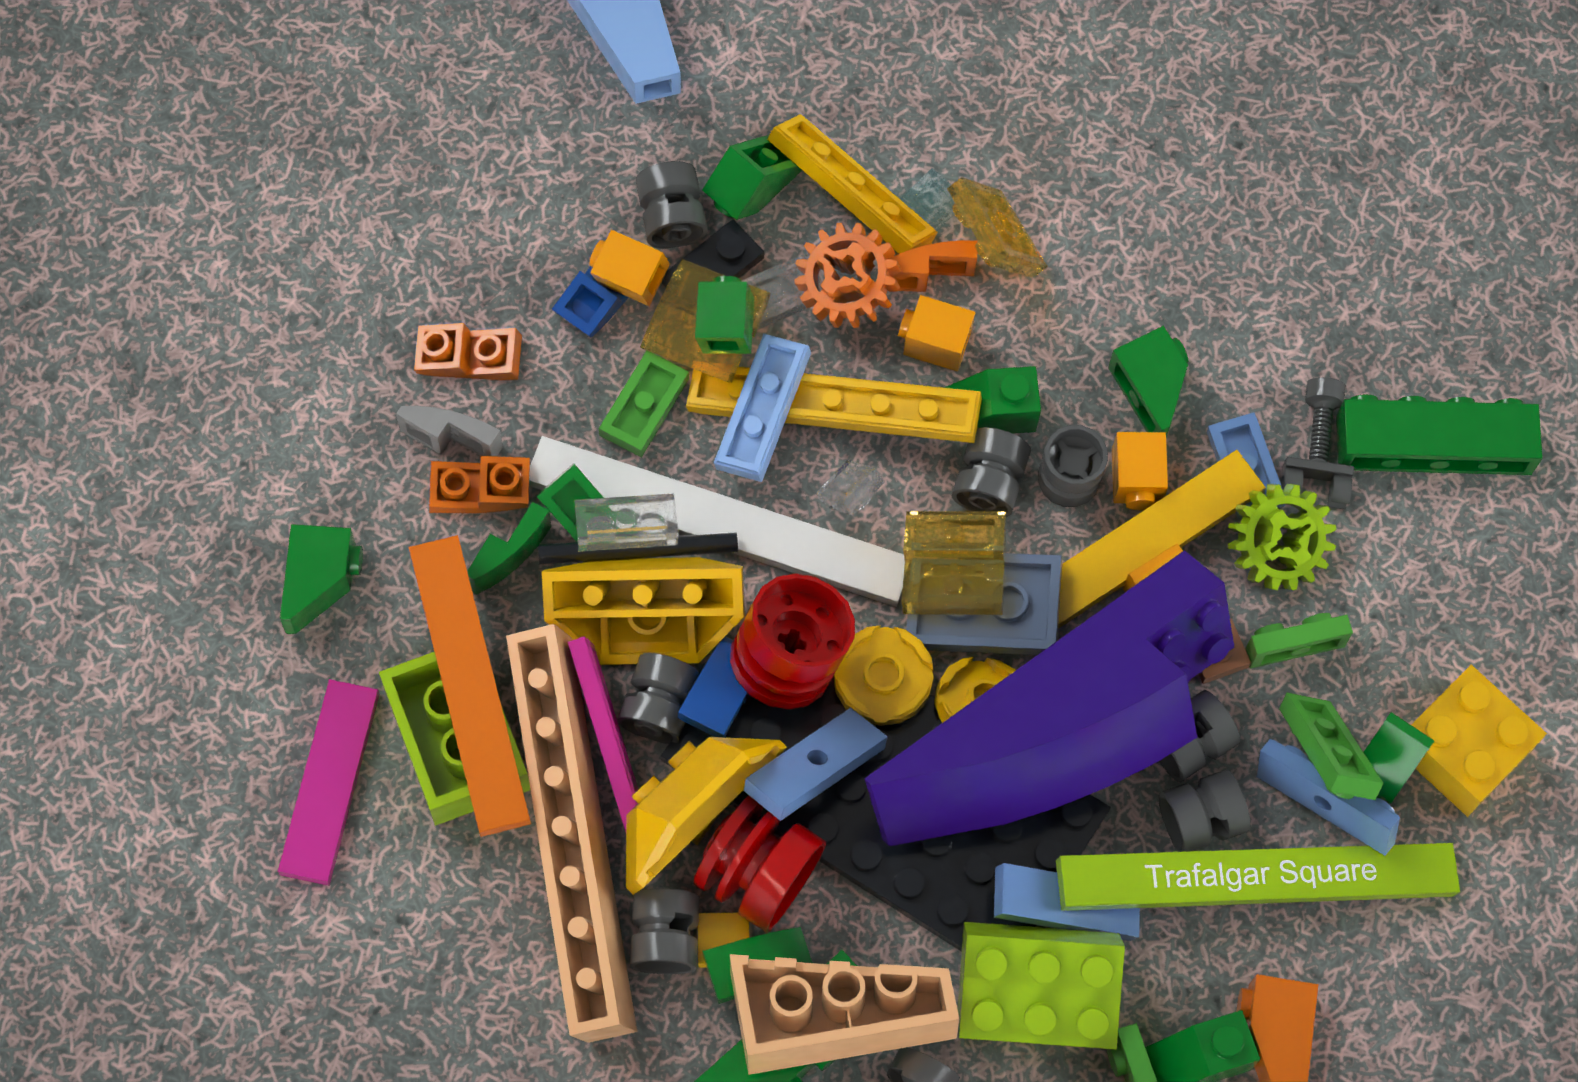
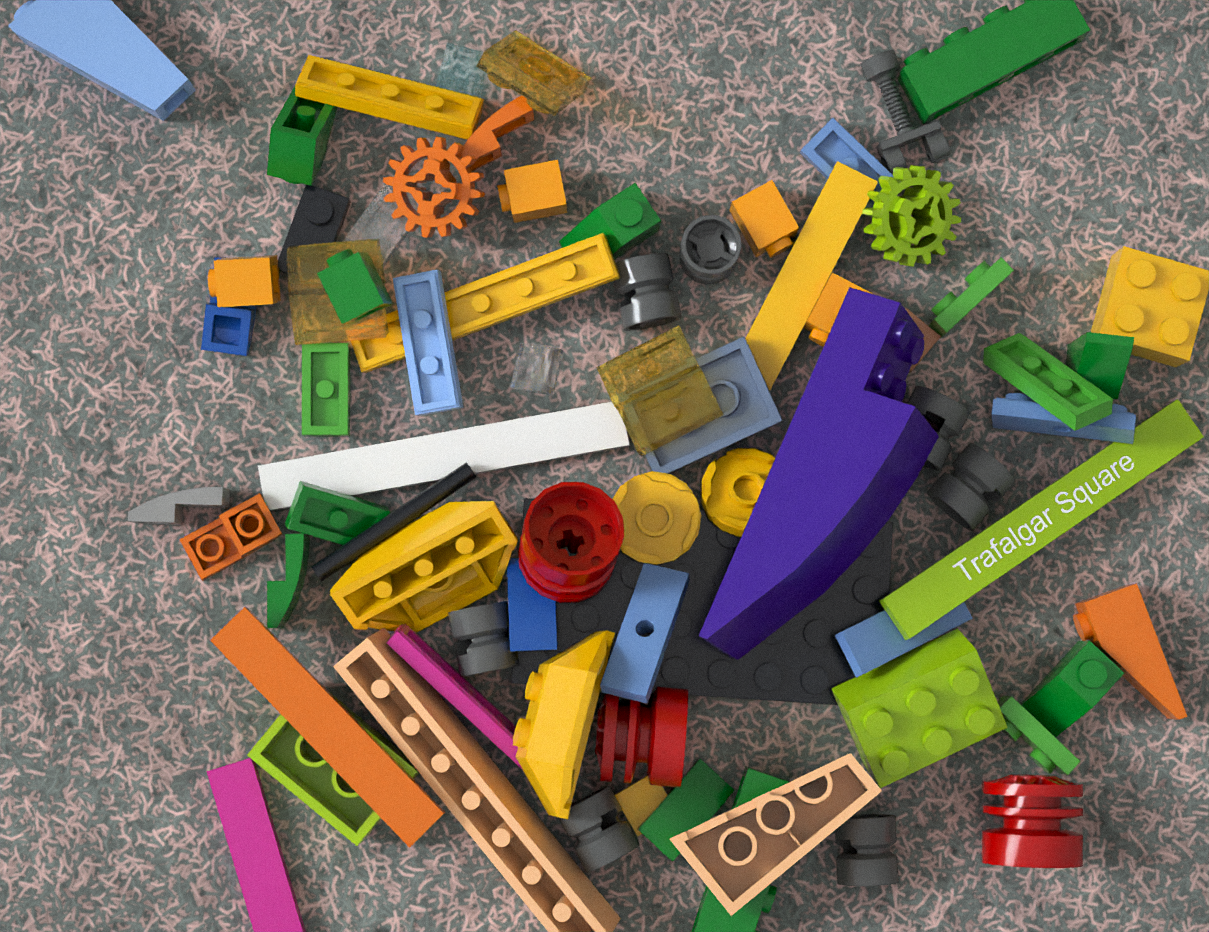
camera: 25 degrees left, 15 degrees up
(317, 572) = (142, 689): green slope -> none
(463, 353) = (153, 425): orange slope -> none
(626, 522) = (374, 510): clear plate -> none
(671, 204) = (237, 190): dark grey wheel -> none
(1151, 376) = (734, 134): green slope -> none

